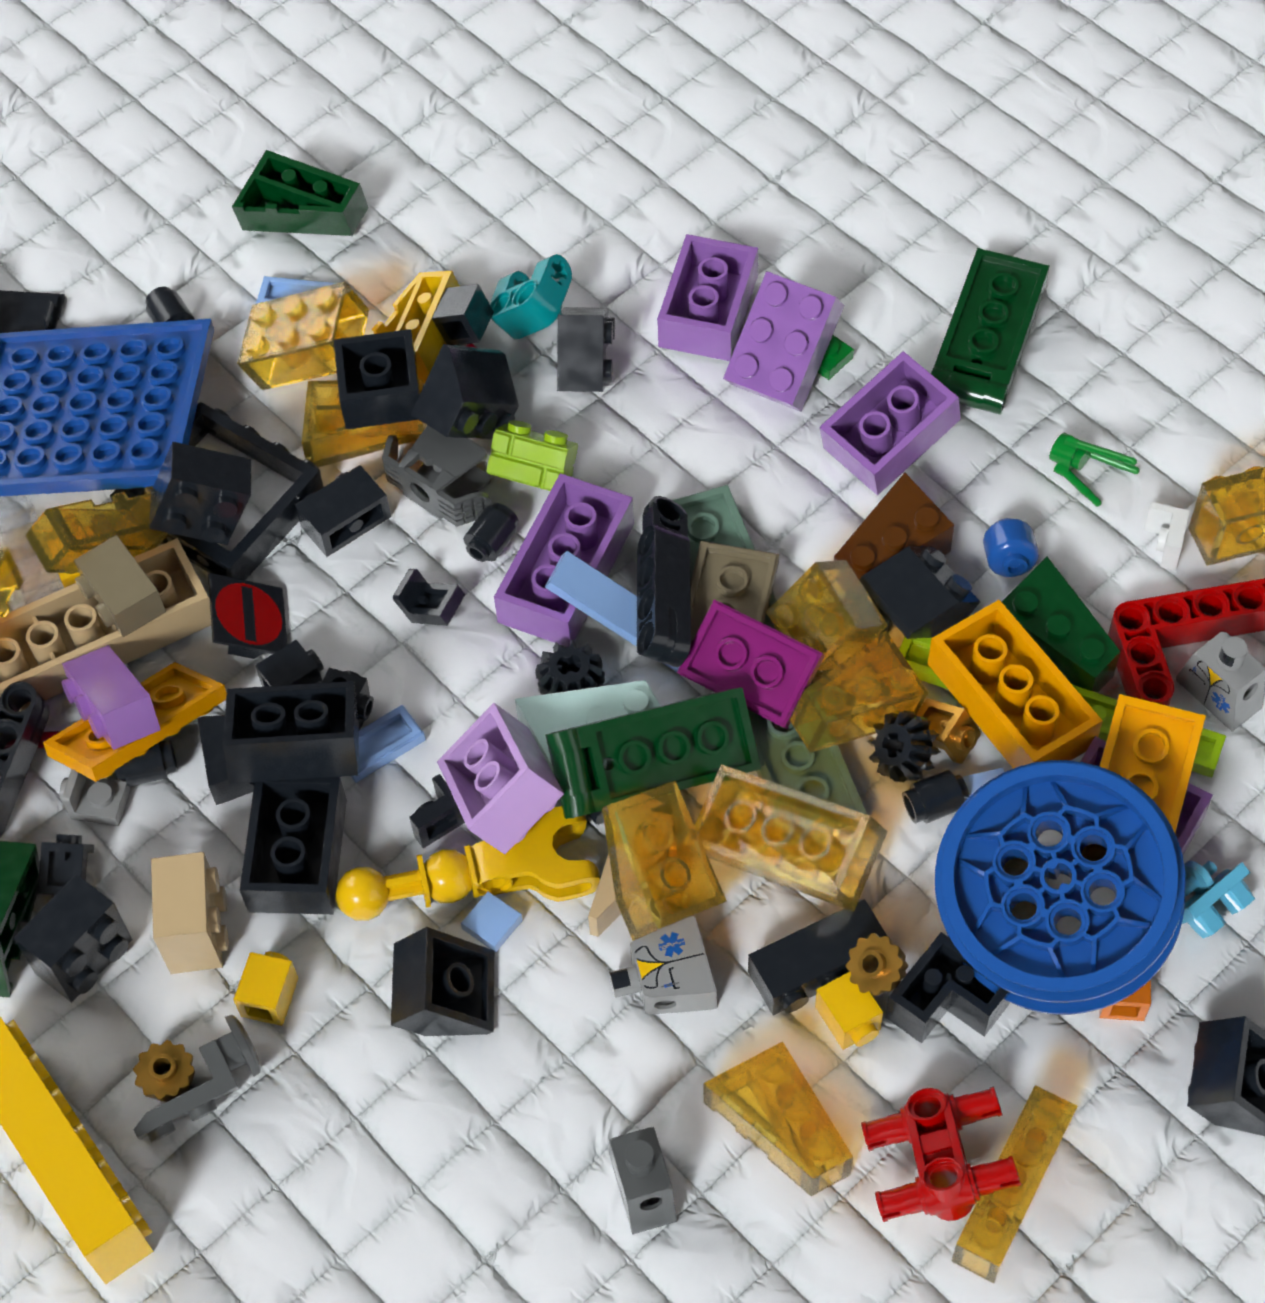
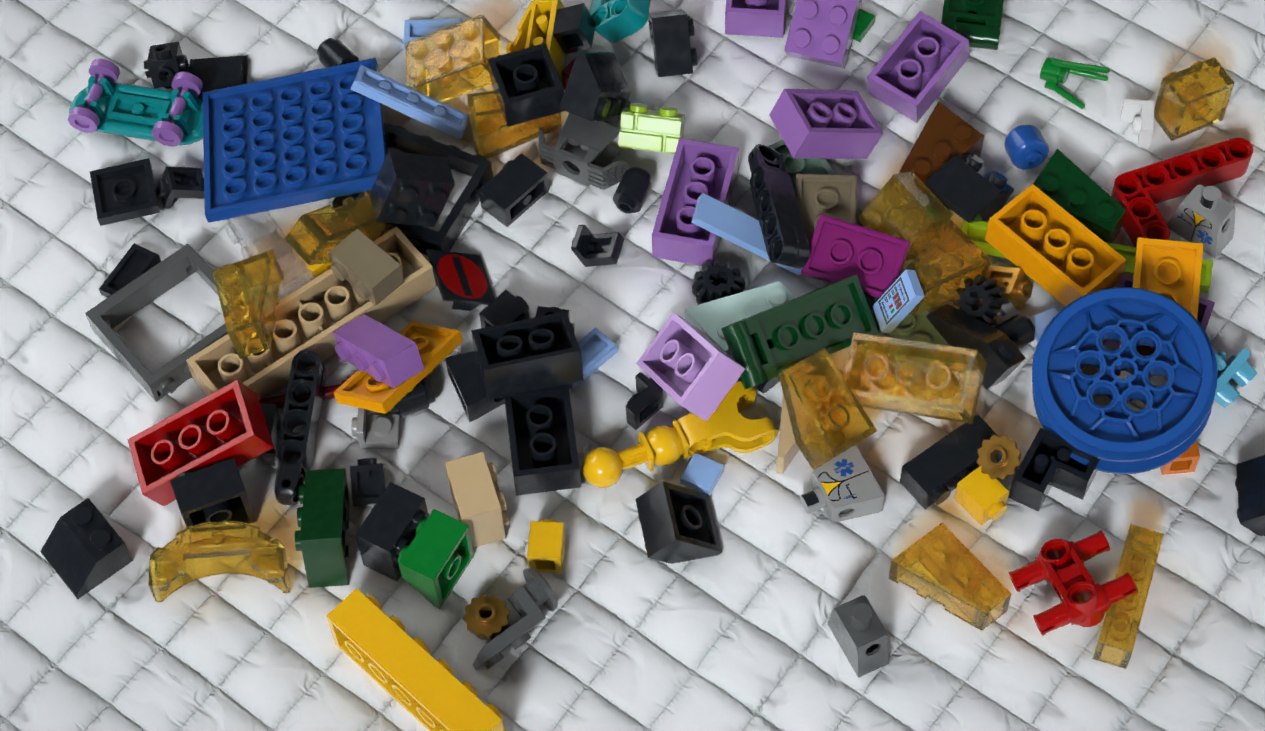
camera: 10 degrees left, 0 degrees up
(118, 982) = (436, 557): none -> green slope
(236, 380) = (410, 102): none -> light blue tile
(752, 481) = (825, 124): none -> medium lavender brick
(790, 730) = (898, 301): none -> light blue tile
(888, 799) = (970, 333): none -> black slope

